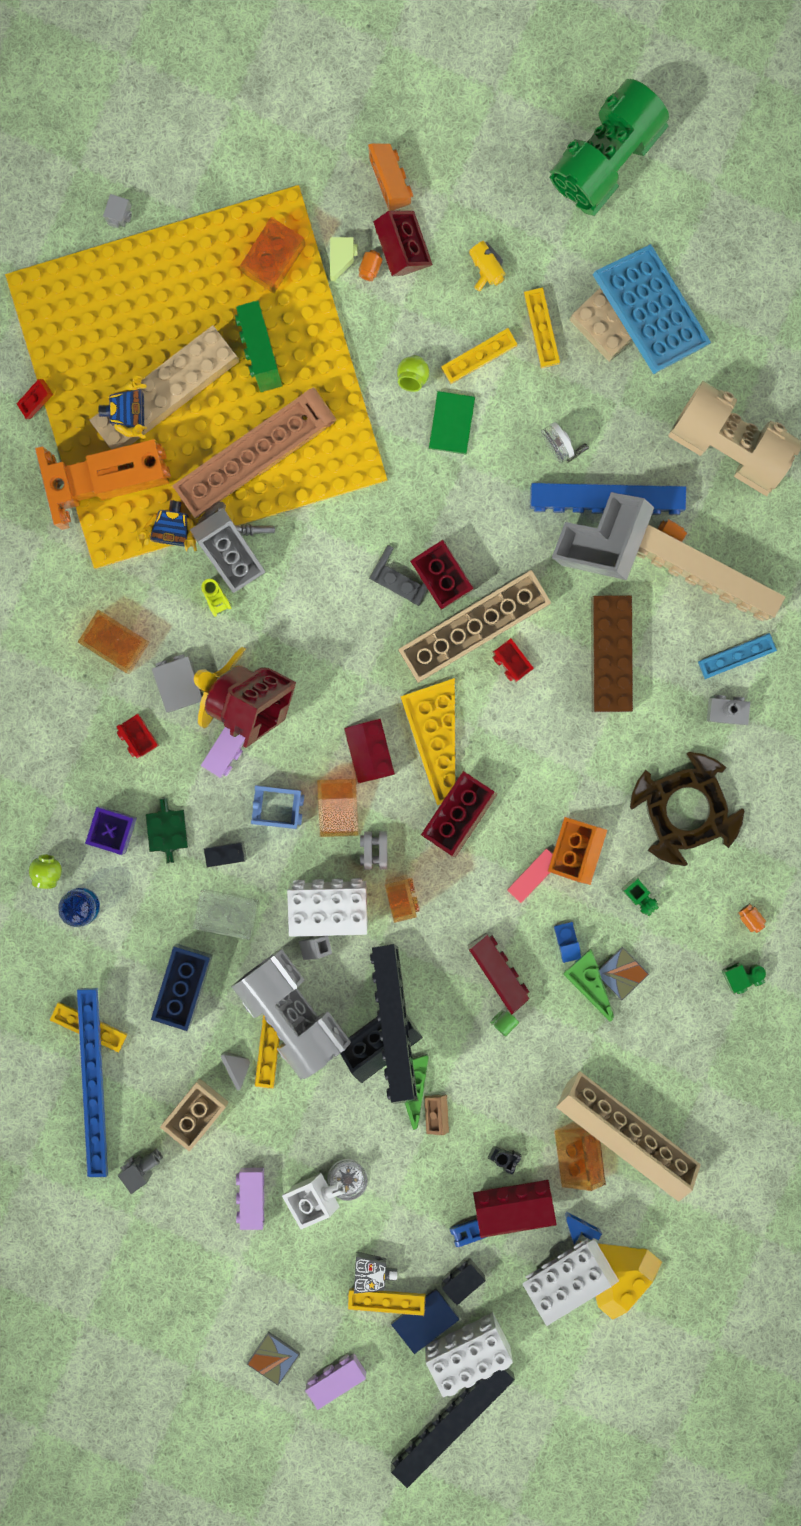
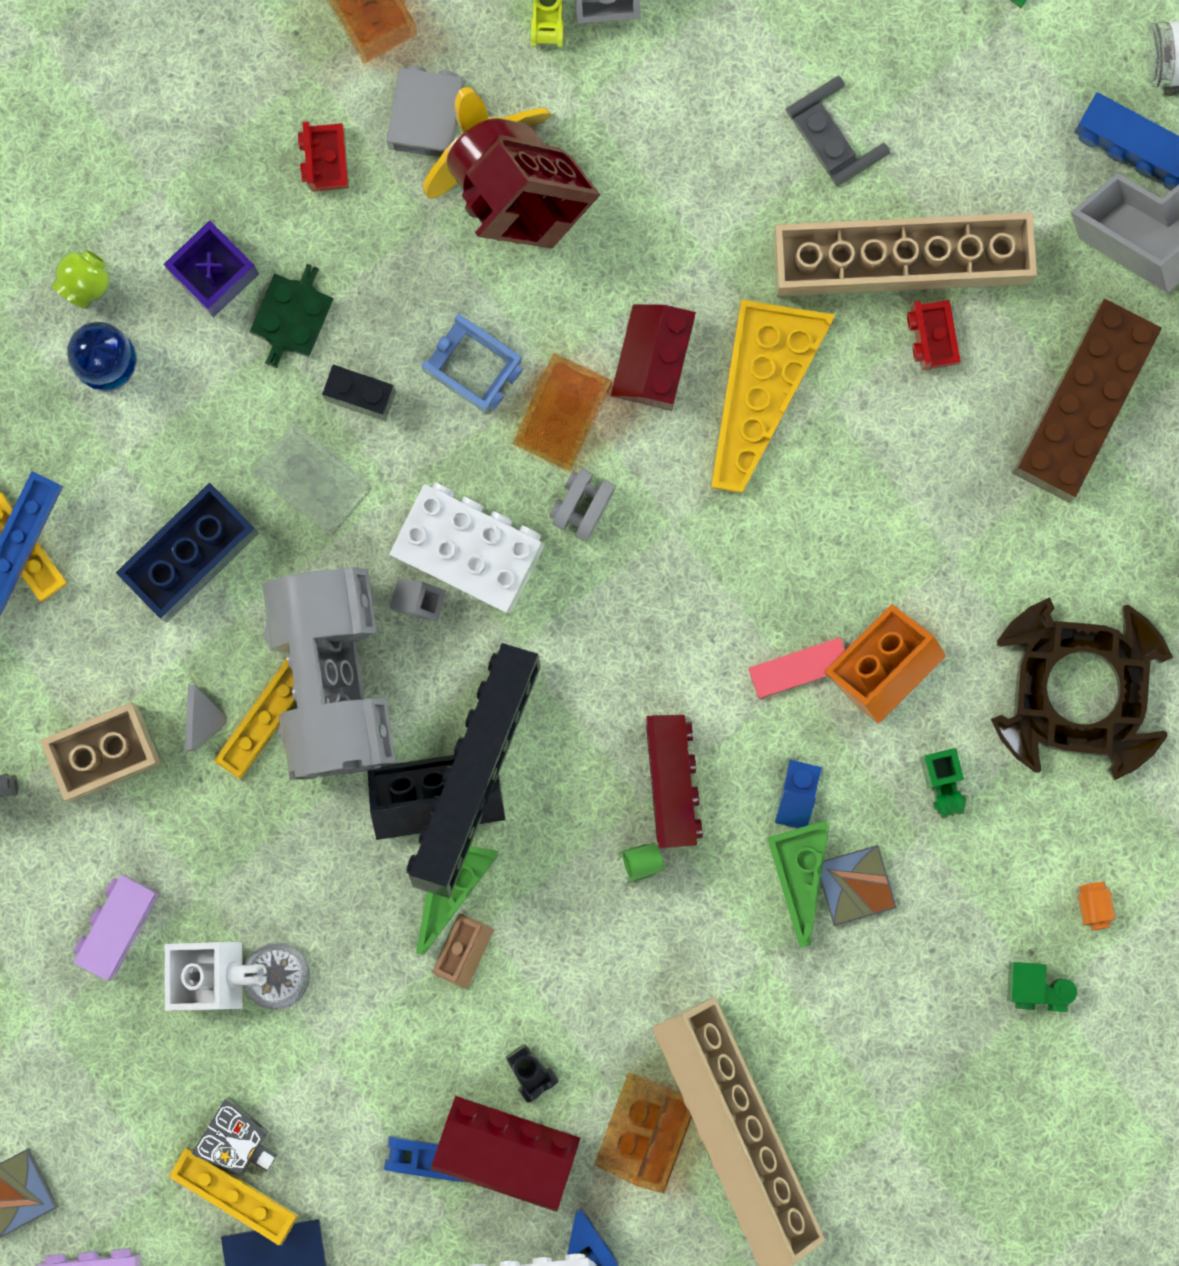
camera: 30 degrees right, 5 degrees down
(223, 753) = (441, 244): lavender brick -> none
(401, 899) = (585, 588): clear orange brick -> none
(442, 574) = (897, 155): dark red slope -> none
(459, 814) = (737, 515): dark red slope -> none
(462, 1281) = (366, 1227): black brick -> none

